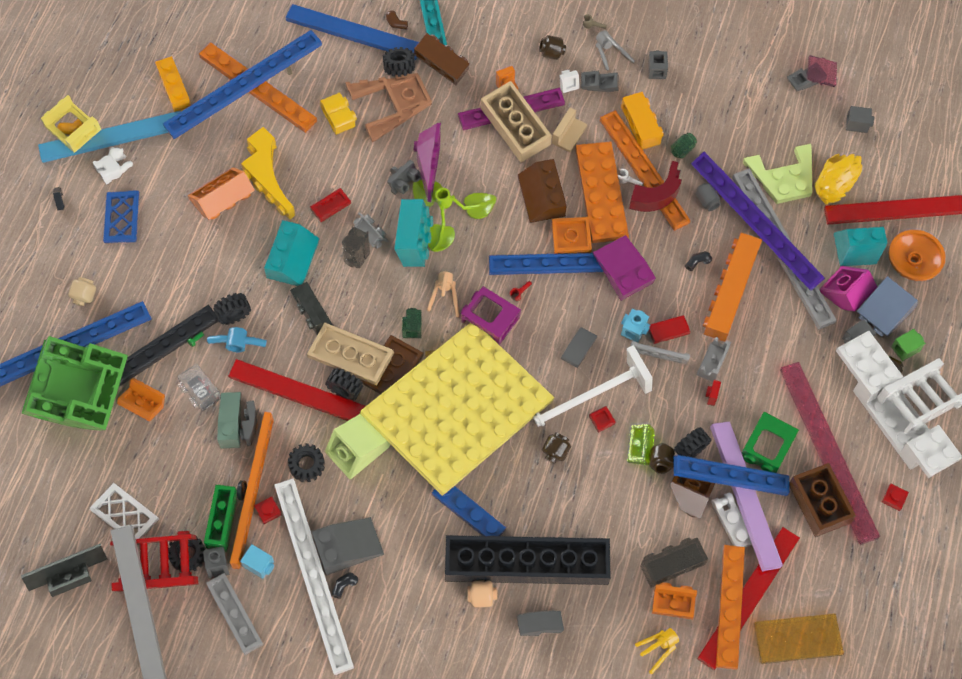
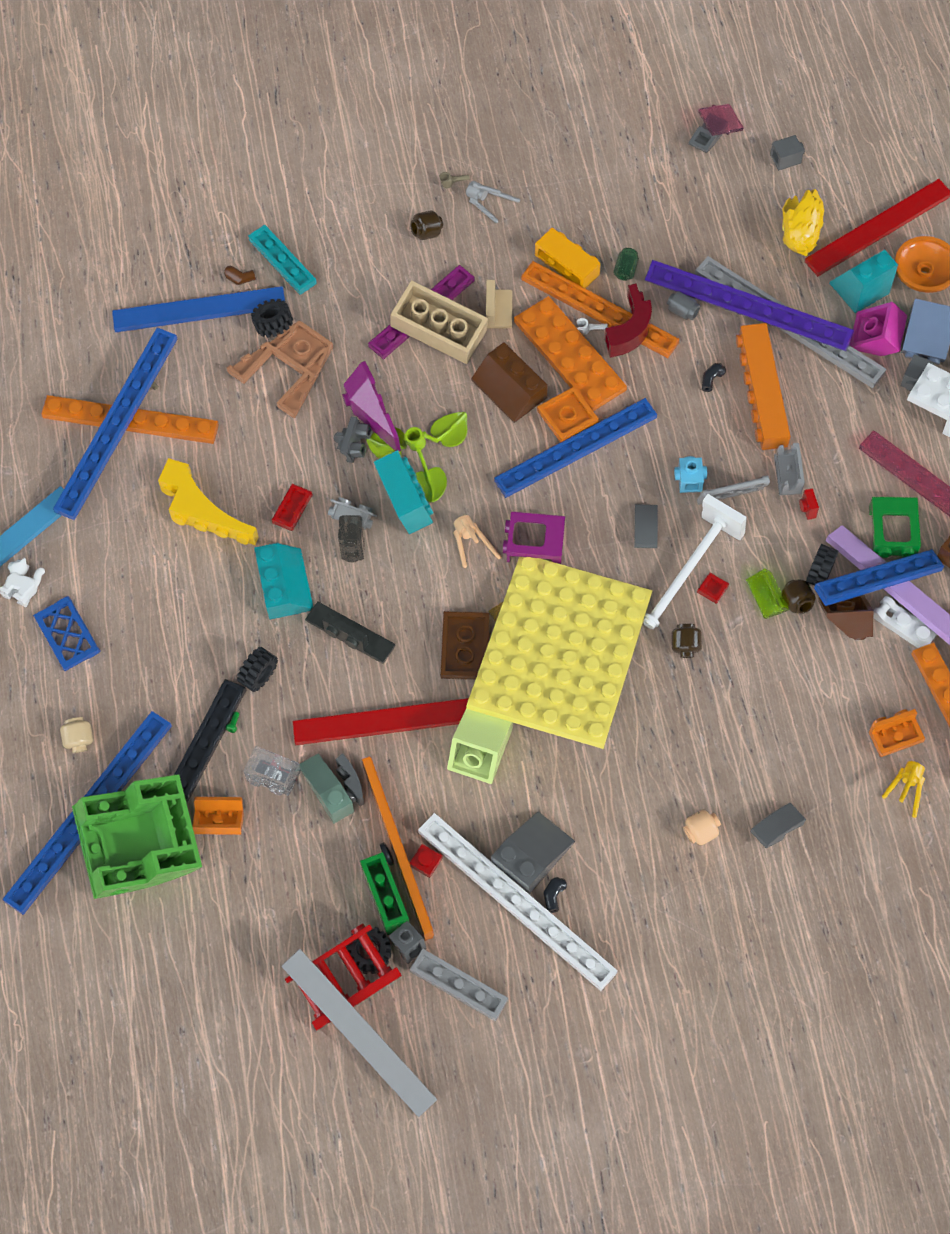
camera: 25 degrees left, 0 degrees up
(66, 572) = (252, 1039): pearl dark grey bracket -> none
(125, 498) = (265, 928): white window -> none
(173, 84) = (36, 461): light orange brick -> none
(221, 193) = (164, 552): orange slope -> none
(236, 340) = (280, 700): dark azure piece -> none
(257, 561) = (450, 918): medium azure brick -> none
(306, 474) = (436, 776): black tyre -> none
(337, 113) = (239, 405): yellow brick -> none
(344, 384) = (428, 687): black tyre -> none
(351, 353) = (415, 652): tan plate -> none
(412, 323) = (459, 588): clear green brick -> none
(441, 58) = (317, 292): reddish brown brick -> none
(470, 512) = (639, 753): blue plate -> none
(504, 76) = (398, 281): orange bracket -> none
(520, 290) = (548, 499): red hand -> none
(527, 560) = (727, 768): black brick -> none
(569, 81) = (466, 252): white tile -> none
(599, 82) = (498, 239): dark grey slope -> none
(624, 267) = (643, 420): magenta slope -> none
(658, 64) = (549, 191): dark grey brick -> none
(669, 329) = (725, 462): red tile -> none
(673, 561) = (872, 693): clear smoke brick -> none
(785, 182) = (752, 252): yellowish green wing -> none

